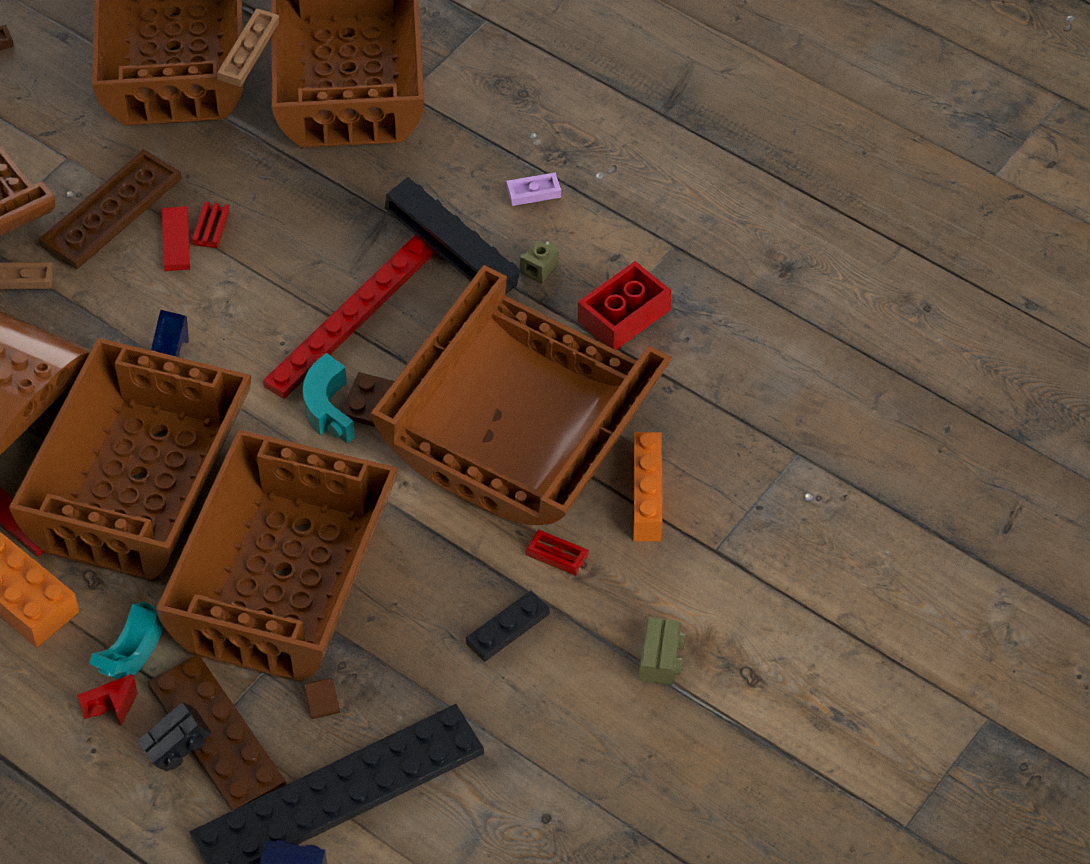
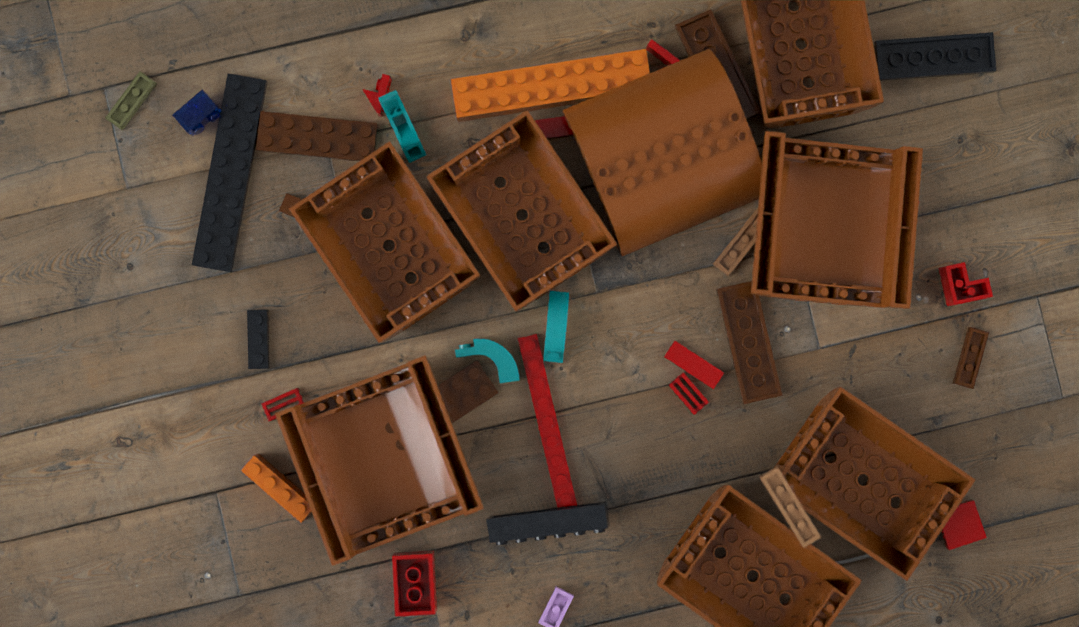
camera: 130 degrees right, 35 degrees up
(170, 333) = (607, 298): clear blue slope -> none
(175, 737) = (322, 108): black brick -> none
(245, 352) = (556, 326): none -> teal arch
(541, 256) = (492, 558): olive brick -> none
(660, 651) = (170, 404): olive brick -> none

